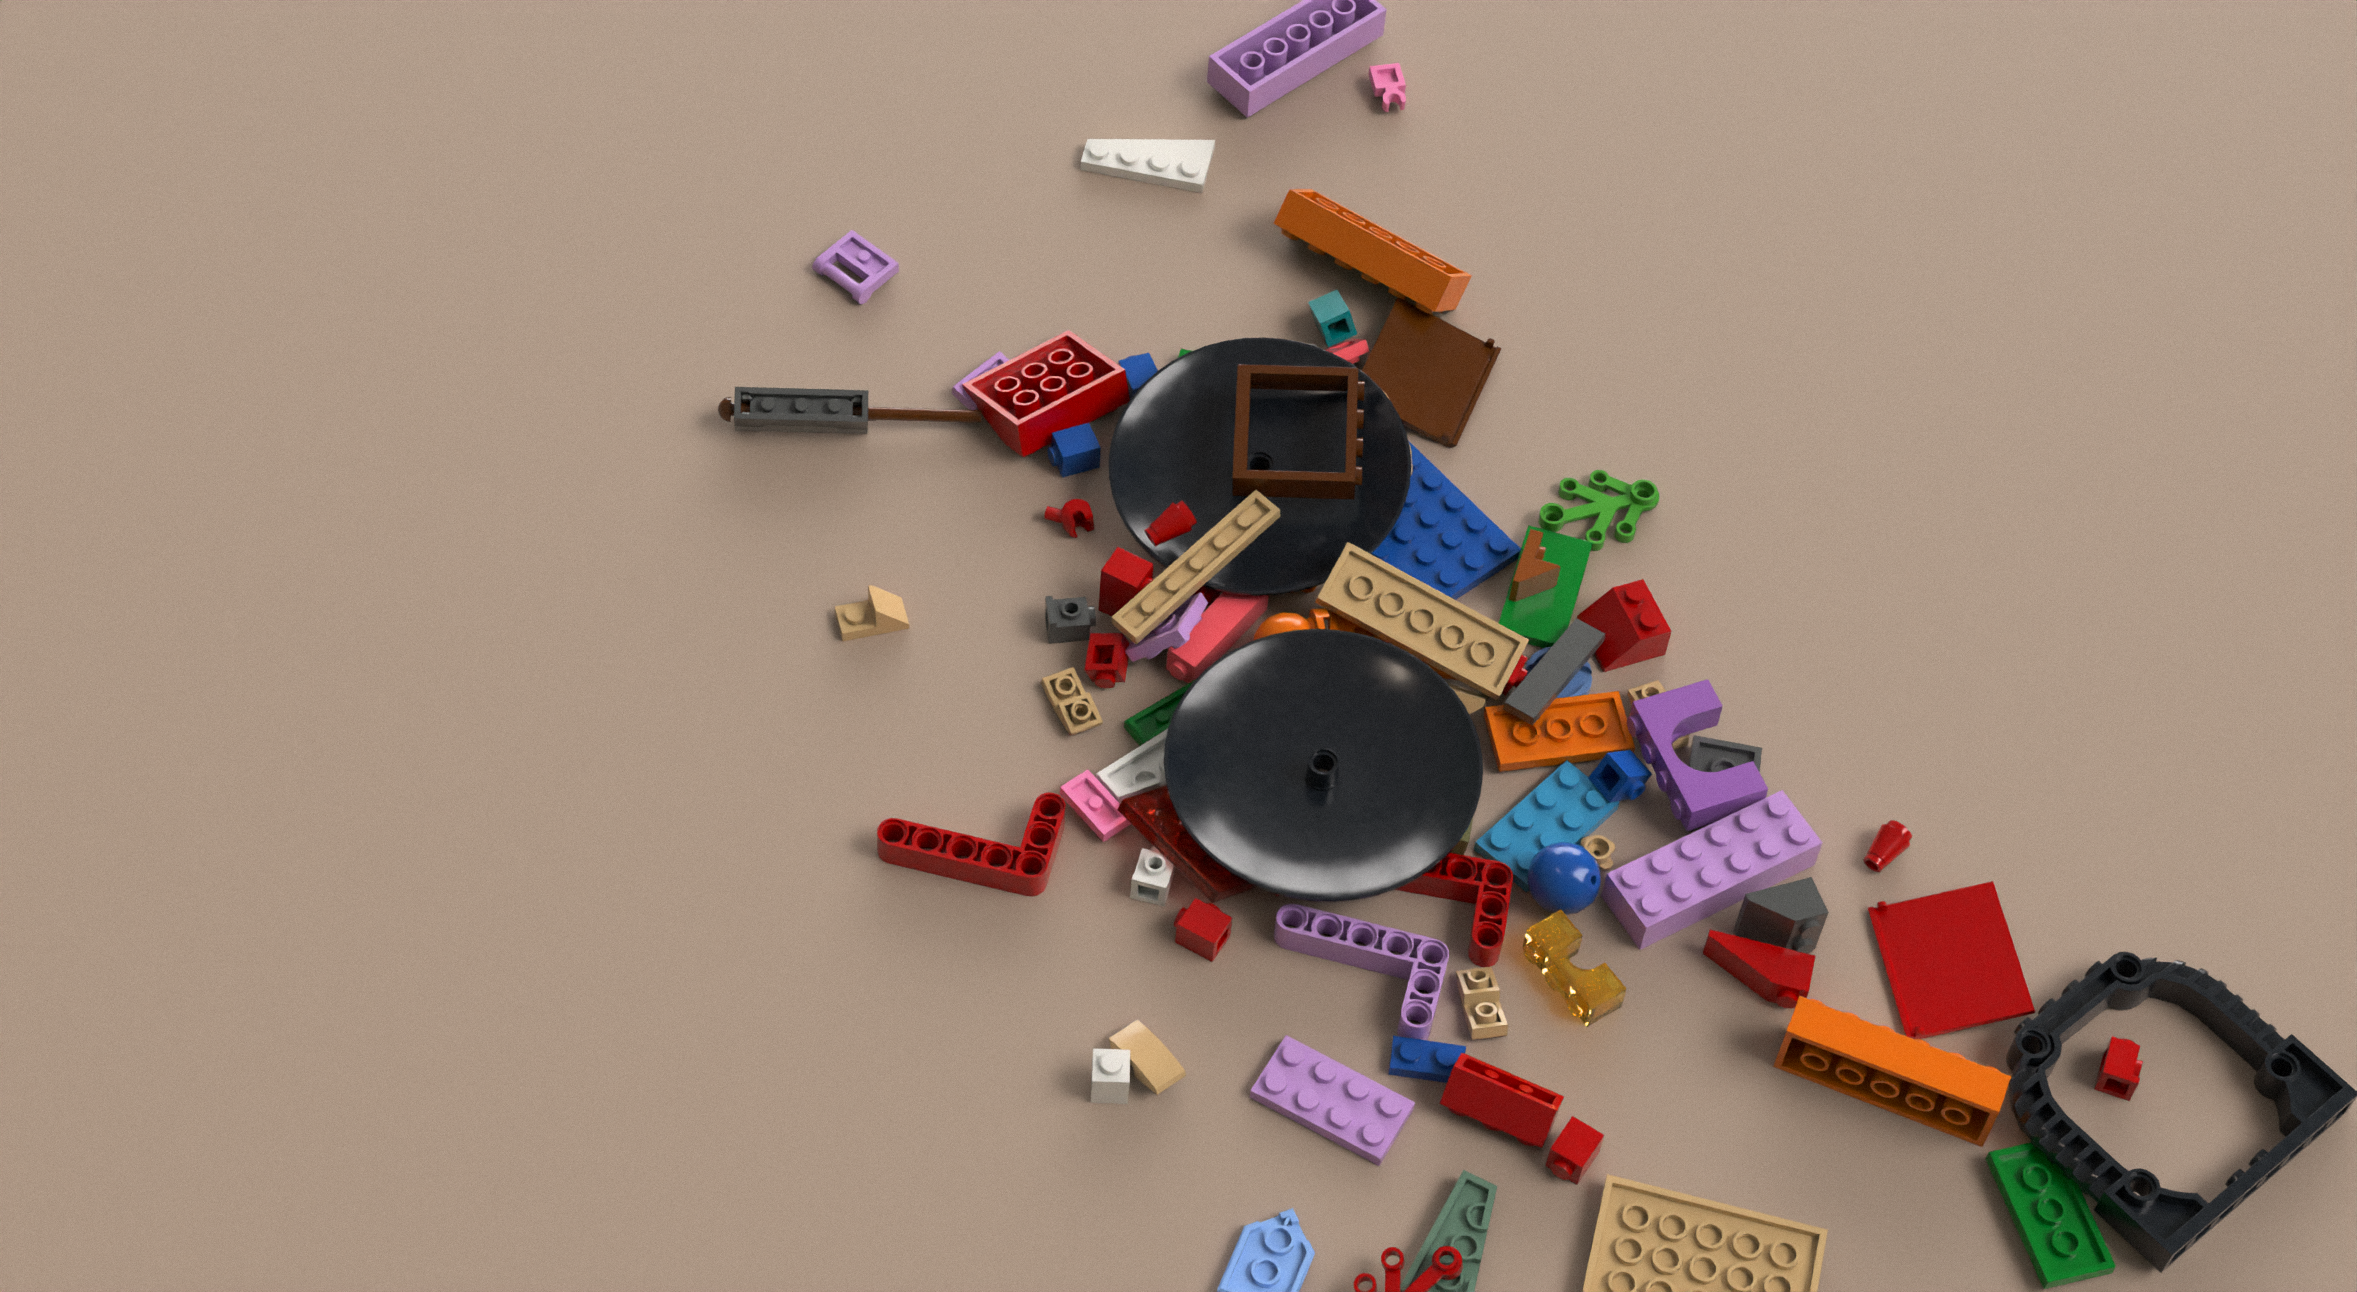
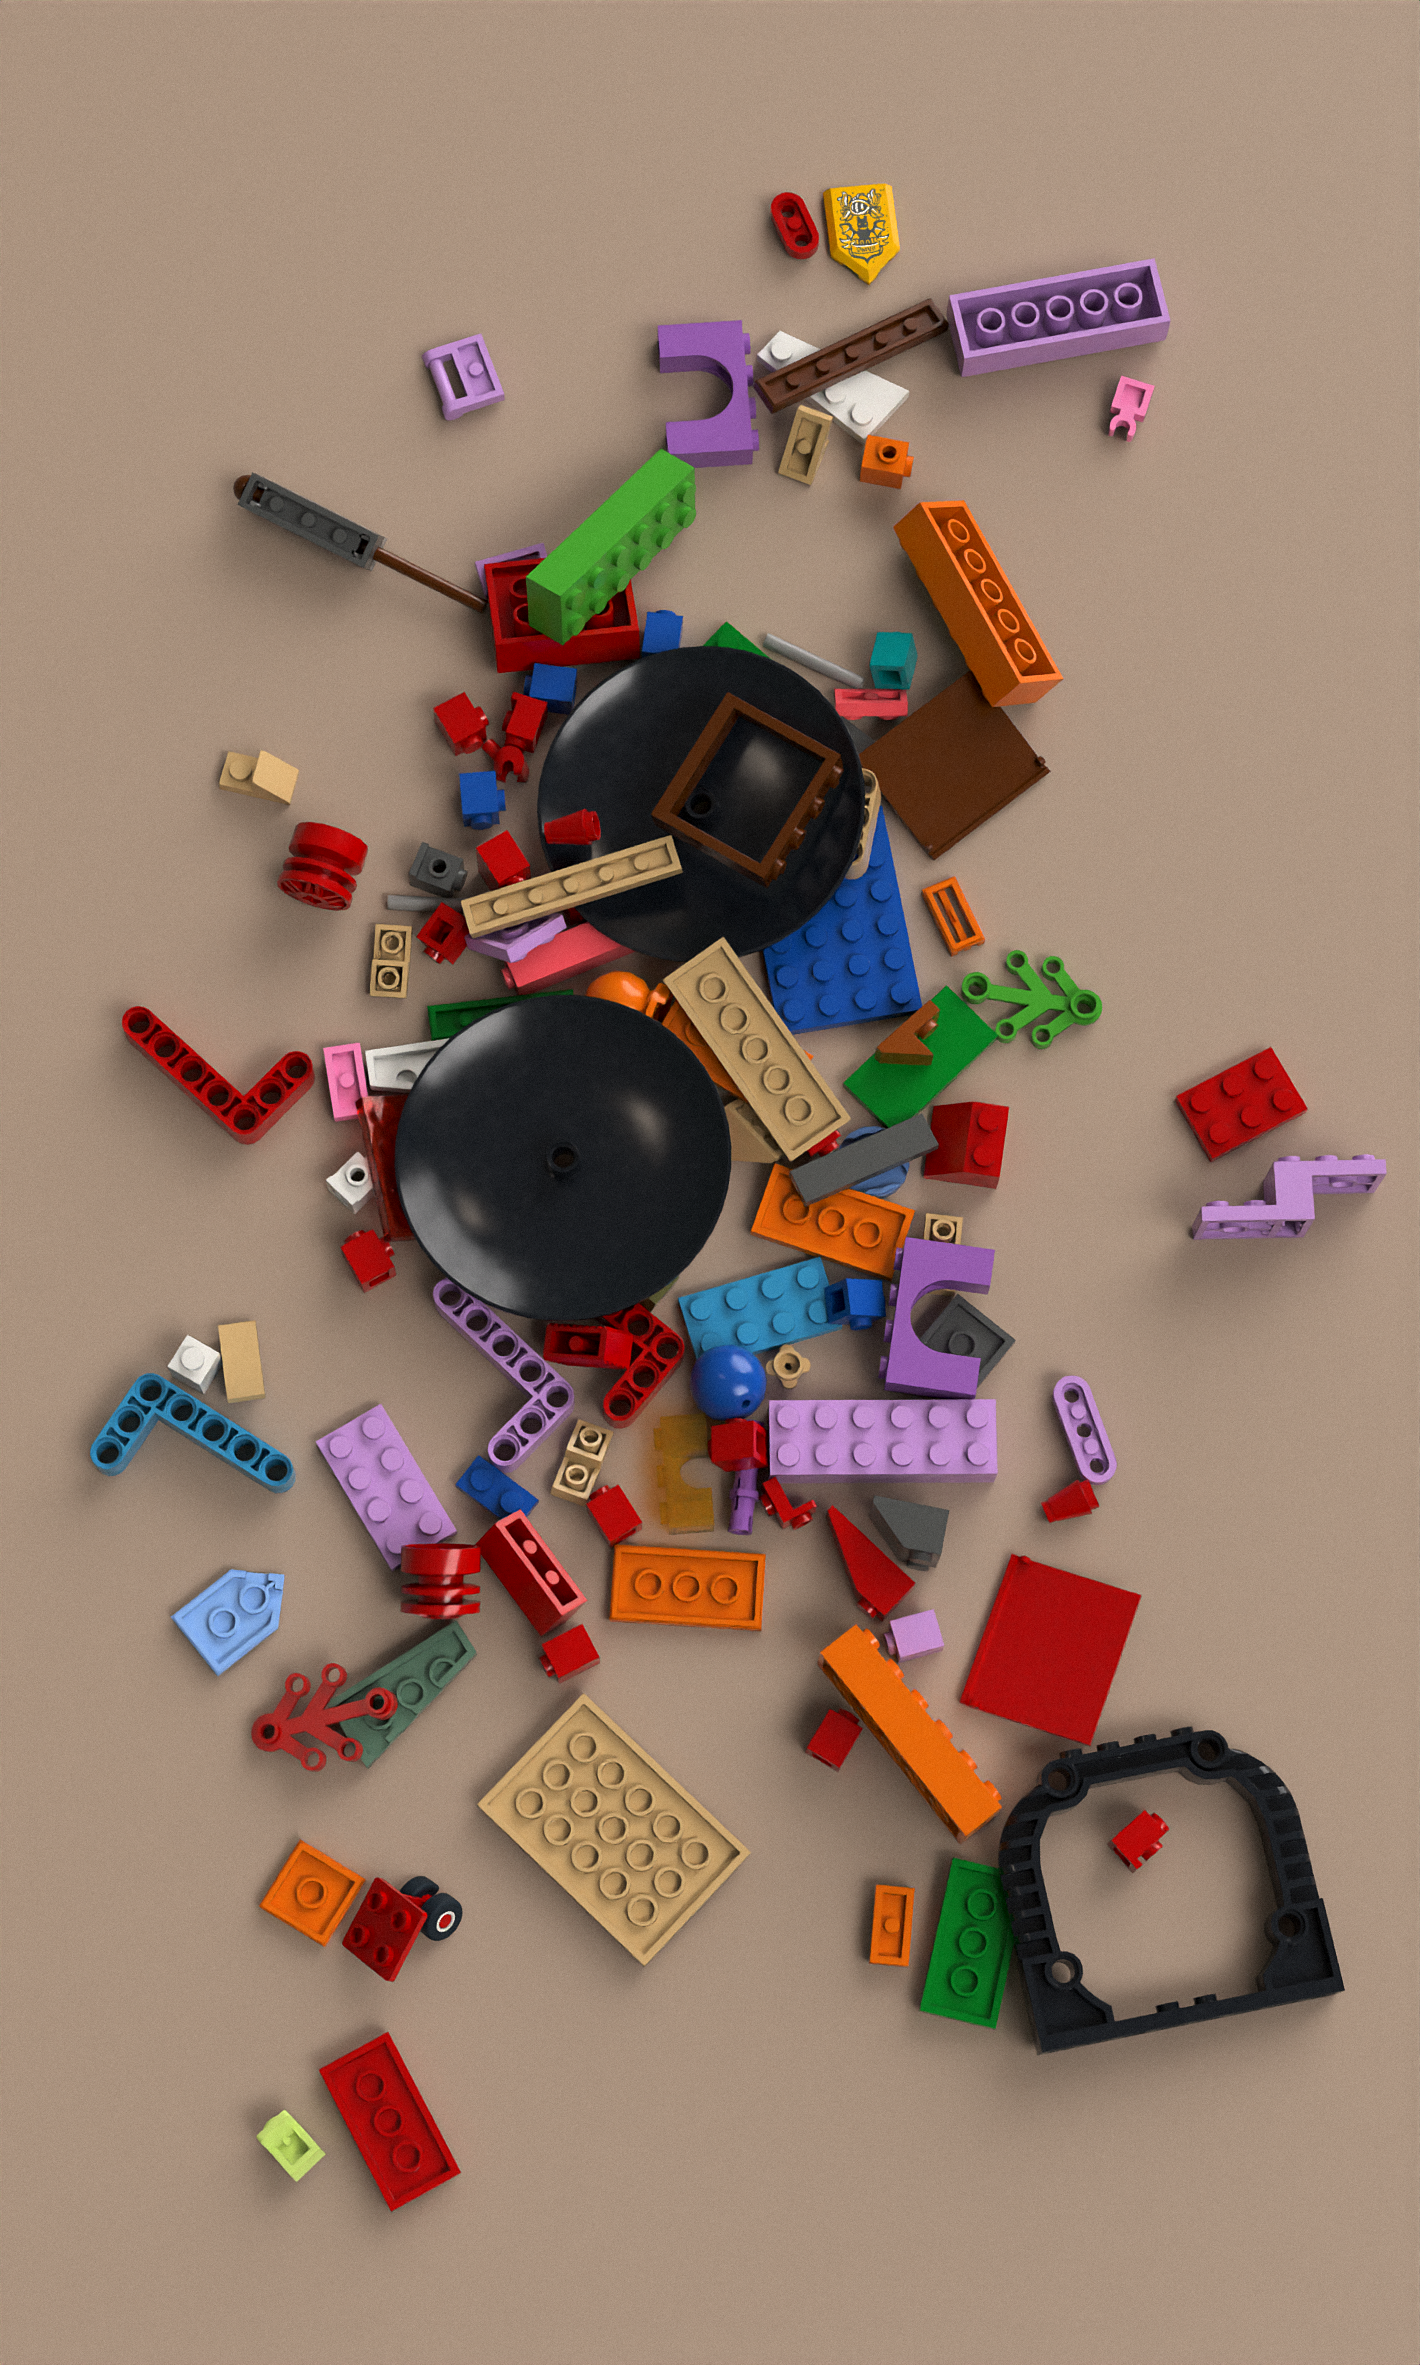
camera: 30 degrees right, 20 degrees up
(974, 648) = (322, 866): none -> red wheel
(1016, 506) = (461, 724): none -> red brick
(1051, 66) = (795, 228): none -> red plate
(1055, 169) = (719, 351): none -> medium lavender arch
(1066, 319) = (611, 547): none -> bright green brick
(1067, 479) = (524, 722): none -> red brick
(1068, 551) = (481, 799): none -> blue brick
(1068, 650) = (419, 903): none -> light grey bar
(1101, 51) = (862, 228): none -> yellow tile
(1144, 1132) = (193, 1429): none -> dark azure beam
(1155, 132) = (850, 356): none -> reddish brown tile
(1162, 203) = (806, 445): none -> tan slope
(1230, 192) = (885, 462): none -> orange brick
(1433, 902) = (588, 1346): none -> red brick
(1434, 1135) = (440, 1579): none -> red wheel
(1494, 480) = (965, 943): none -> orange tile
(1536, 1027) = (613, 1514): none -> red brick
(1605, 920) = (738, 1445): none -> red brick
(1628, 961) = (743, 1499): none -> medium lavender pin
(1631, 1057) = (687, 1587): none -> orange tile
(1665, 955) = (776, 1503): none -> red bracket
(1807, 511) = (1241, 1104): none -> red plate
(1832, 1111) = (834, 1738): none -> red brick
(1844, 993) = (914, 1636): none -> lavender brick
(1850, 779) = (1084, 1413): none -> lavender plate
(1896, 551) = (1289, 1197): none -> lavender bracket
(1977, 1232) = (891, 1926): none -> orange plate

